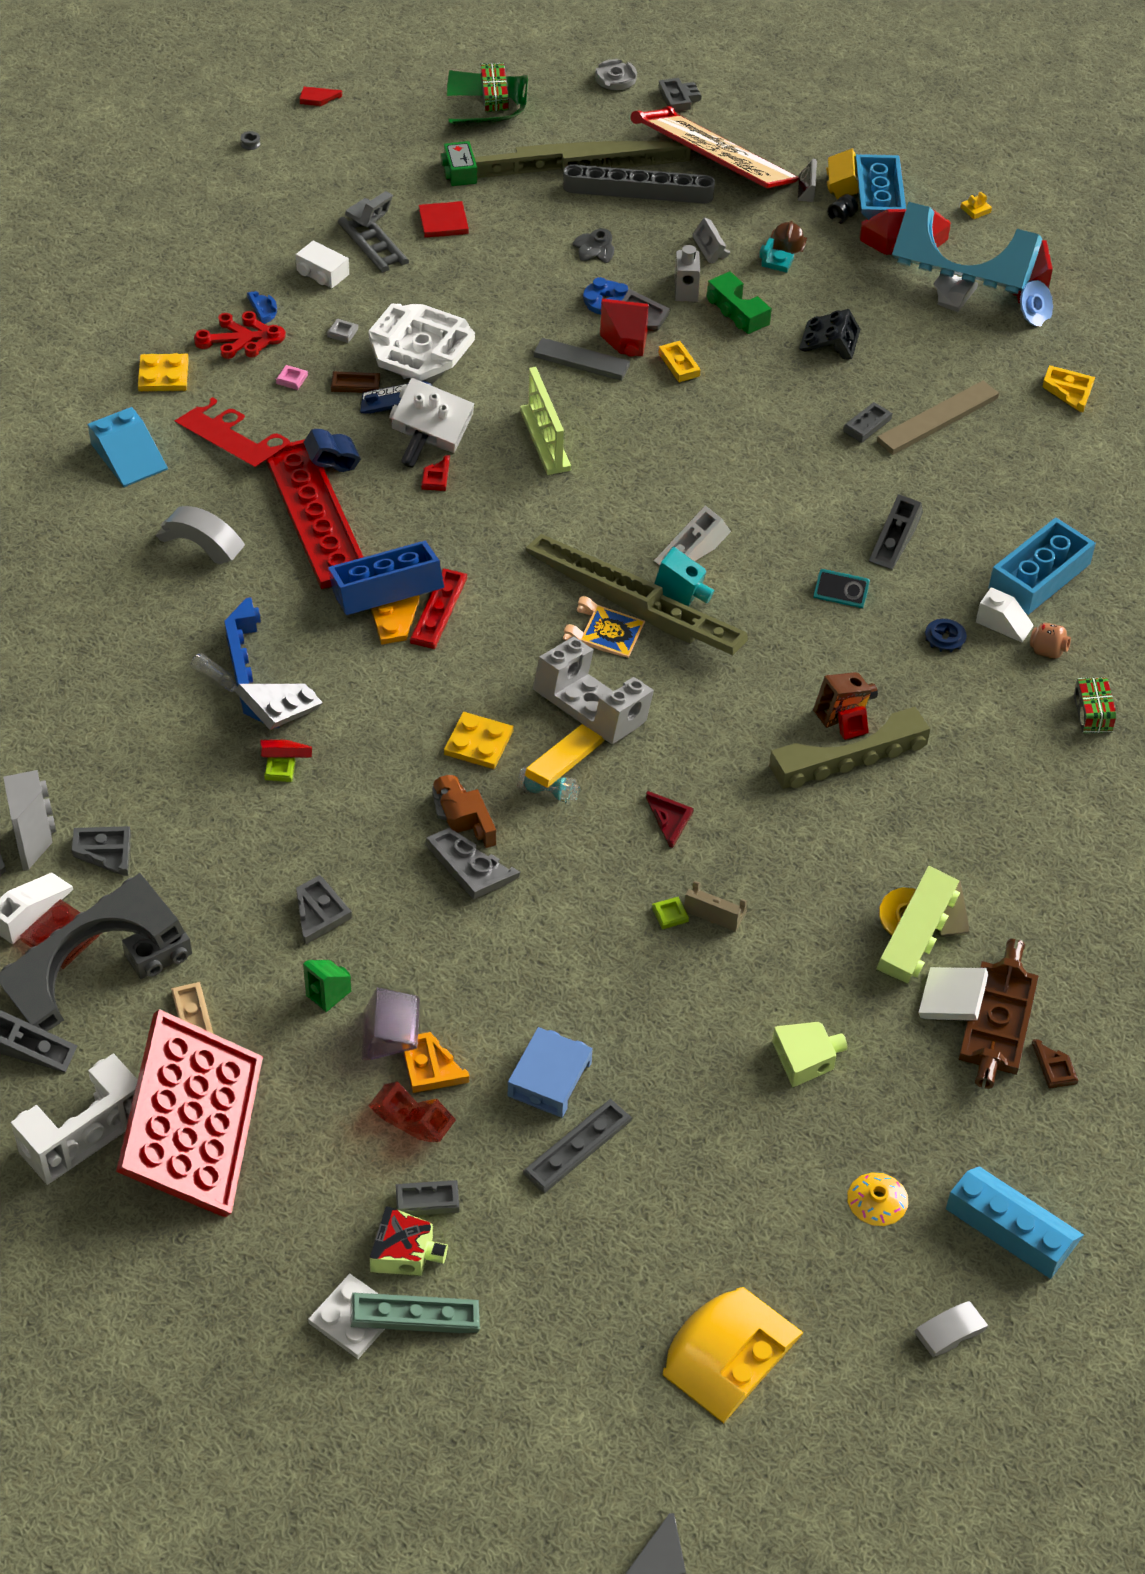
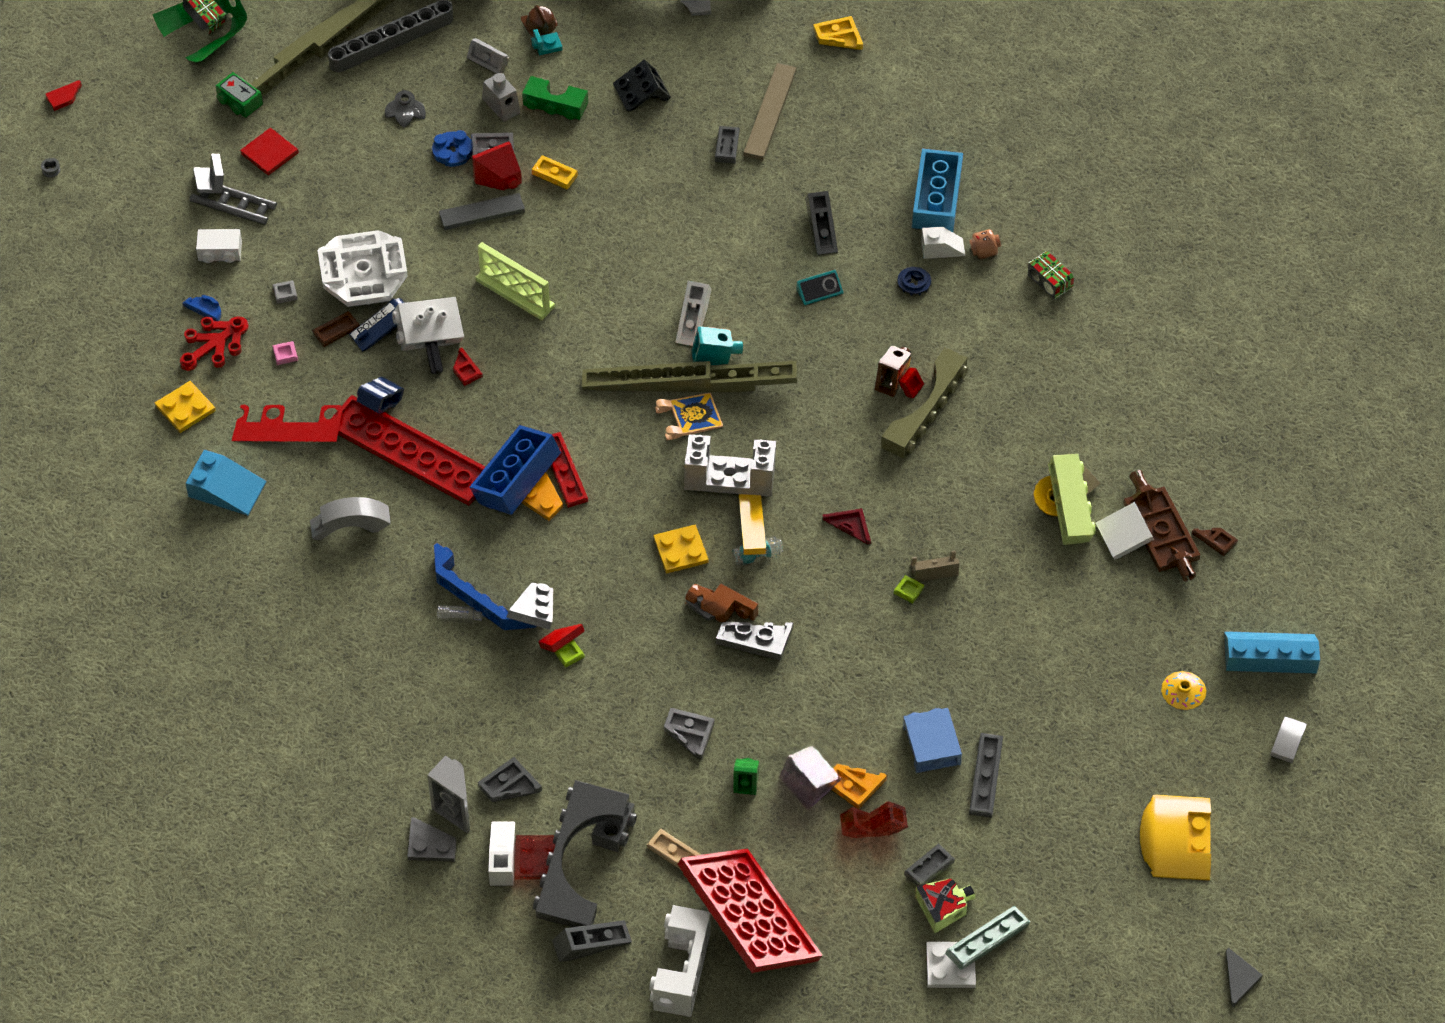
camera: 35 degrees left, 5 degrees up
(806, 1050) = (1069, 625): yellowish green torso -> none

